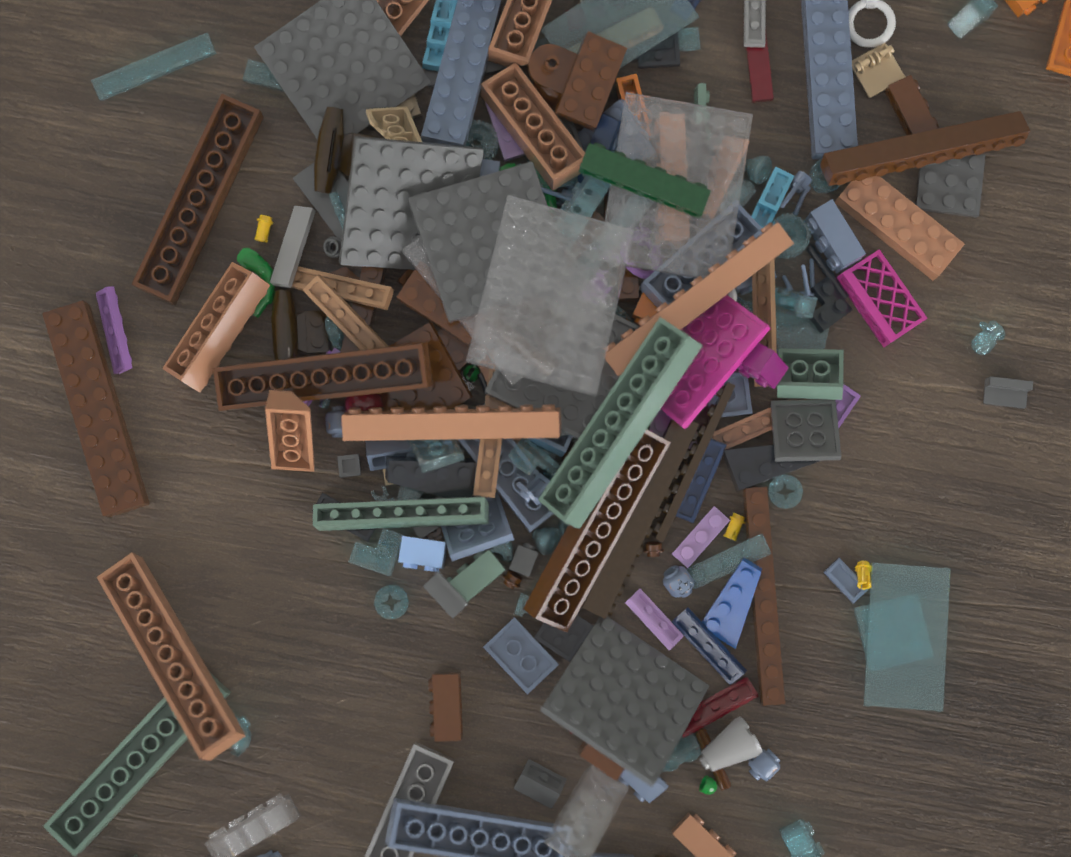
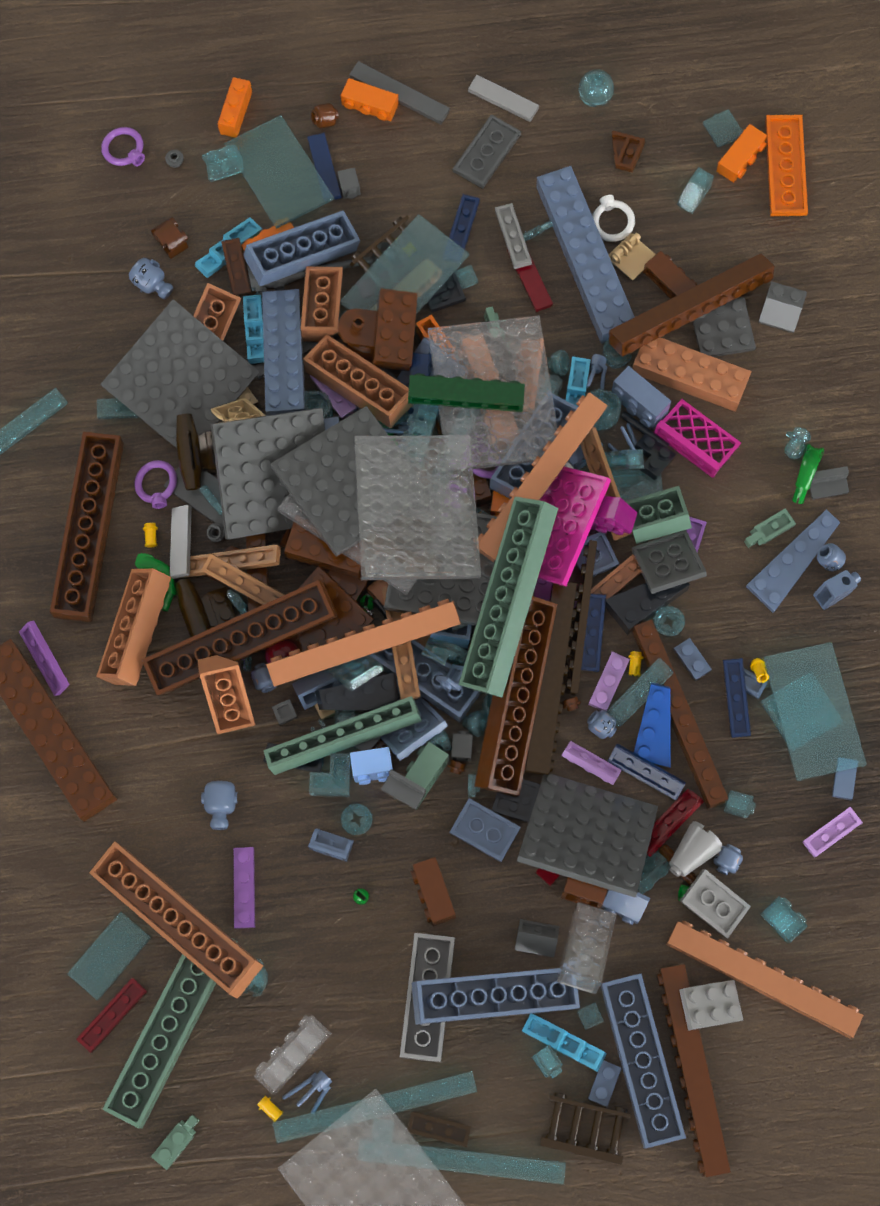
camera: 15 degrees left, 10 degrees down
(81, 728) = (111, 1015): none -> dark red tile
(95, 666) = (109, 956): none -> clear light blue tile
(254, 541) = (219, 801): none -> sand blue piece
(254, 638) = (244, 888): none -> medium lavender plate
(284, 192) = (158, 499): none -> medium lavender piece
(356, 621) = (331, 845): none -> sand blue hinge
(375, 681) = (357, 899): none -> green hinge
(735, 807) = (715, 903): none -> light grey plate
(774, 10) = (539, 229): none -> clear light blue pin
(795, 711) = (739, 804): none -> clear light blue brick
(796, 540) = (692, 659): none -> sand blue plate
(829, 596) = (736, 698): none -> dark blue tile
(882, 769) = (832, 832): none -> lavender plate
(912, 723) = (844, 784): none -> sand blue tile
(926, 474) = (784, 571): none -> sand blue wing
(927, 423) = (770, 528): none -> sand green hinge
(976, 512) = (836, 588): none -> sand blue torso
(981, 476) = (831, 557): none -> sand blue head
(988, 374) = (807, 471): none -> green piece
(1023, 179) = (782, 307): none -> slope

